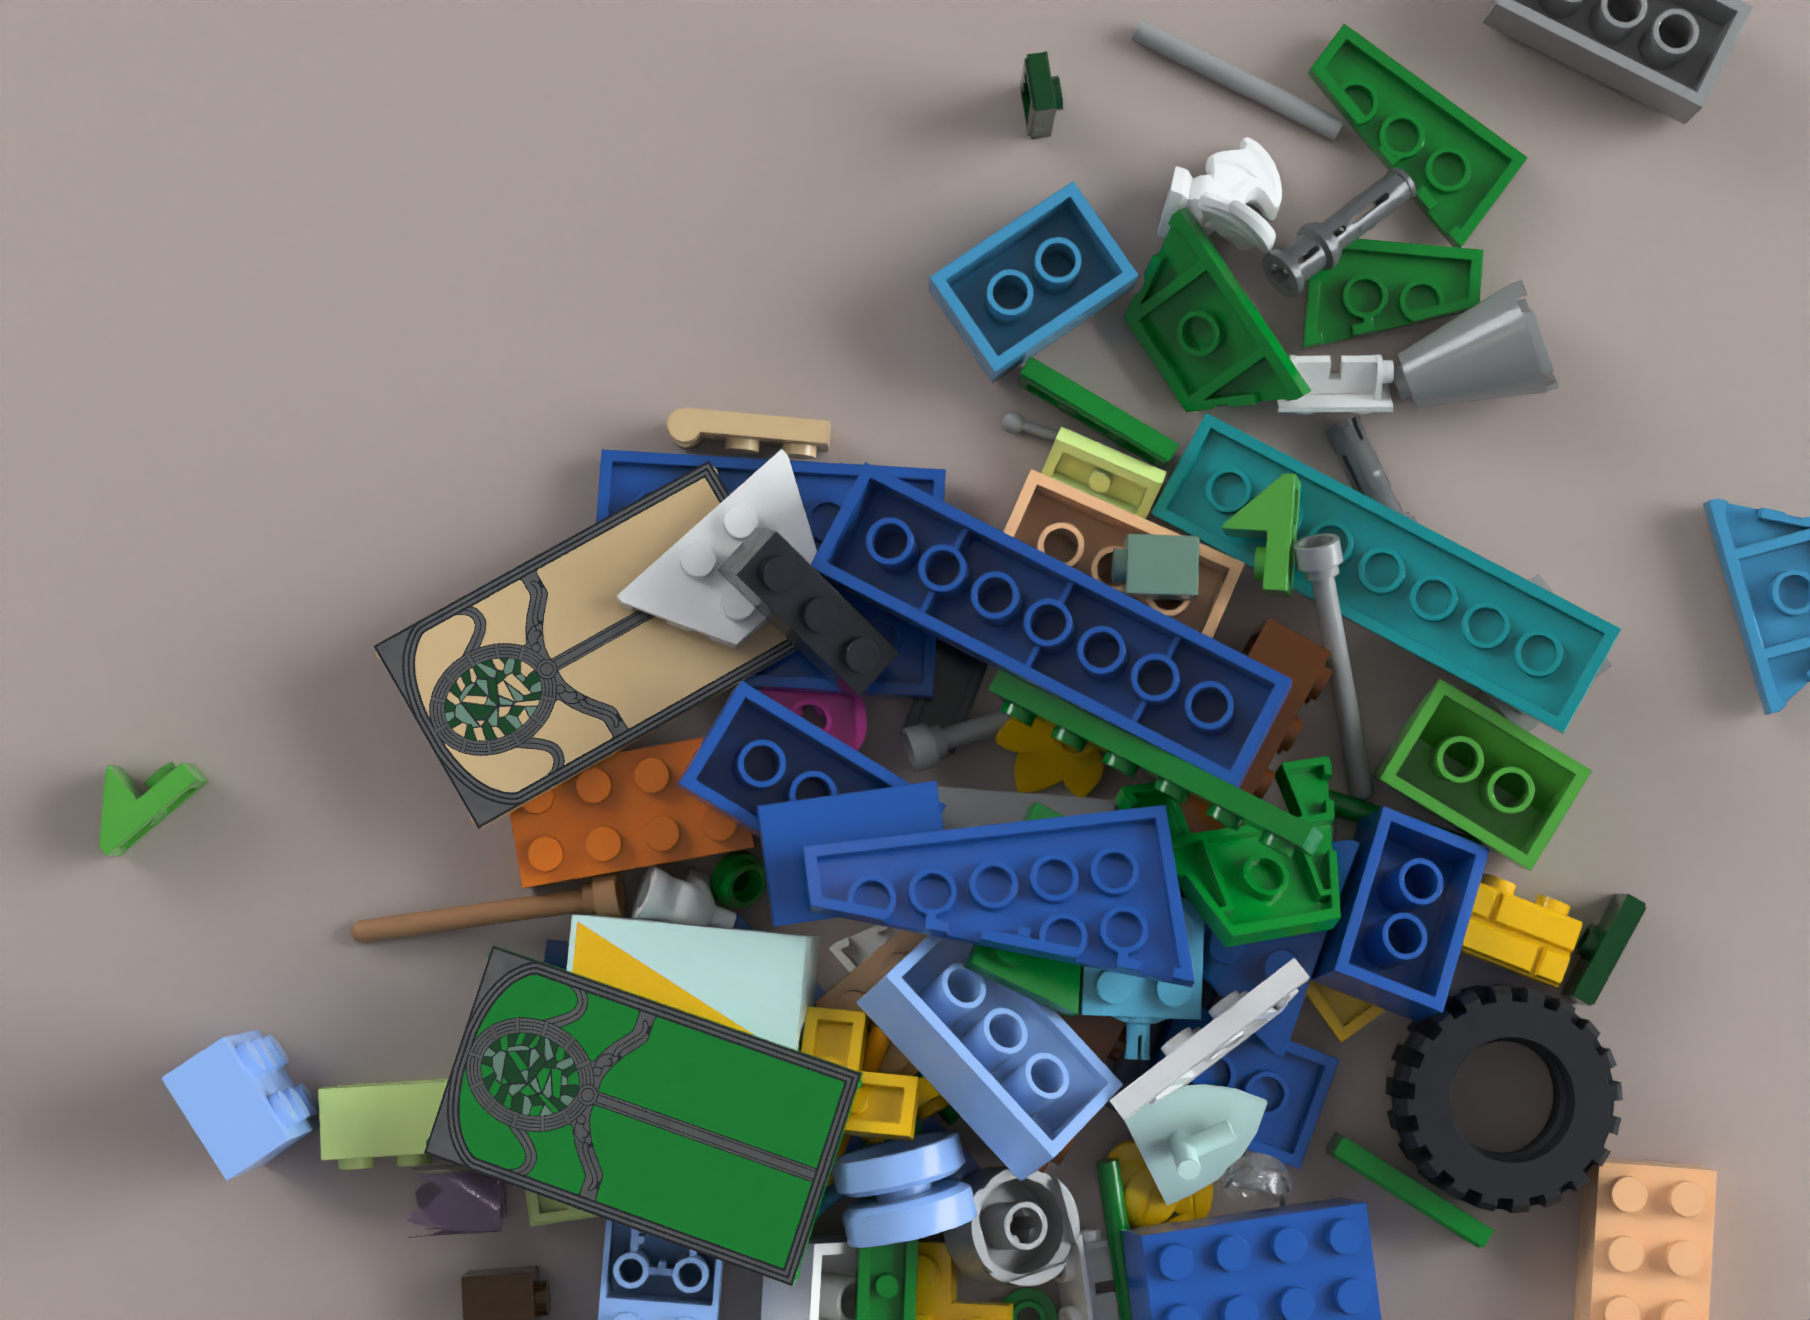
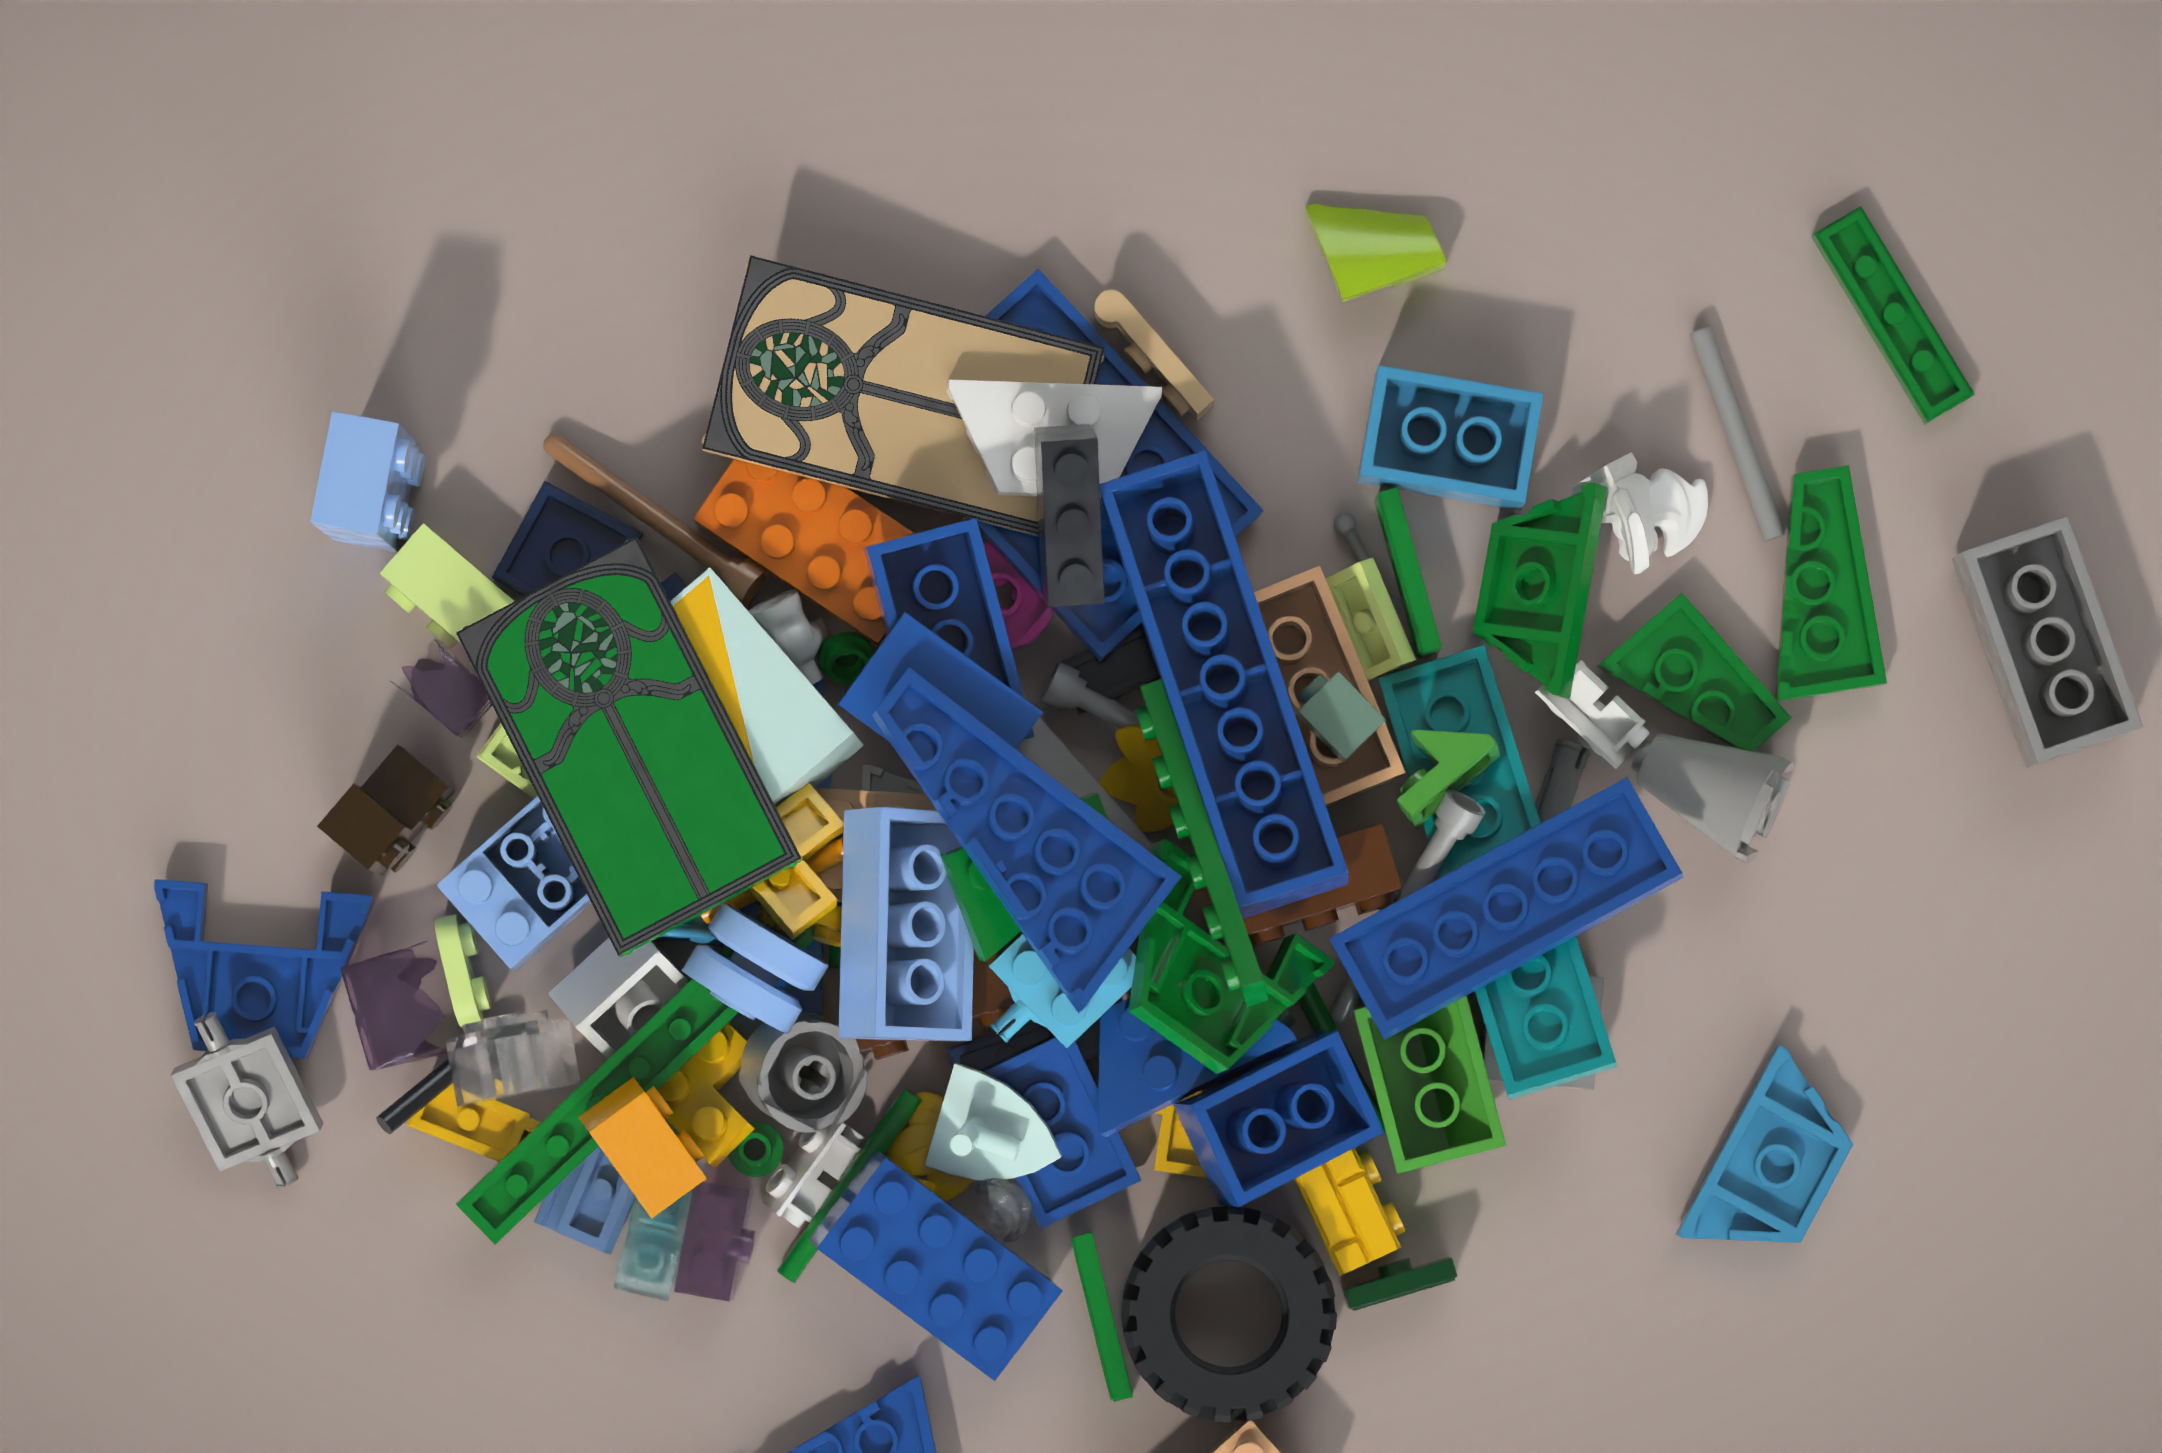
camera: 50 degrees right, 0 degrees up
(132, 814) = (474, 213): bright green slope -> none
(434, 1000) = (556, 539): none -> dark blue tile
(837, 196) = (1374, 248): none -> lime slope
(1040, 95) = (1582, 312): dark green plate -> none
(1198, 1049) = (1045, 1071): white wing -> none
(1323, 242) = (1674, 606): dark grey pin -> none
(1423, 592) = (1506, 908): none -> blue plate

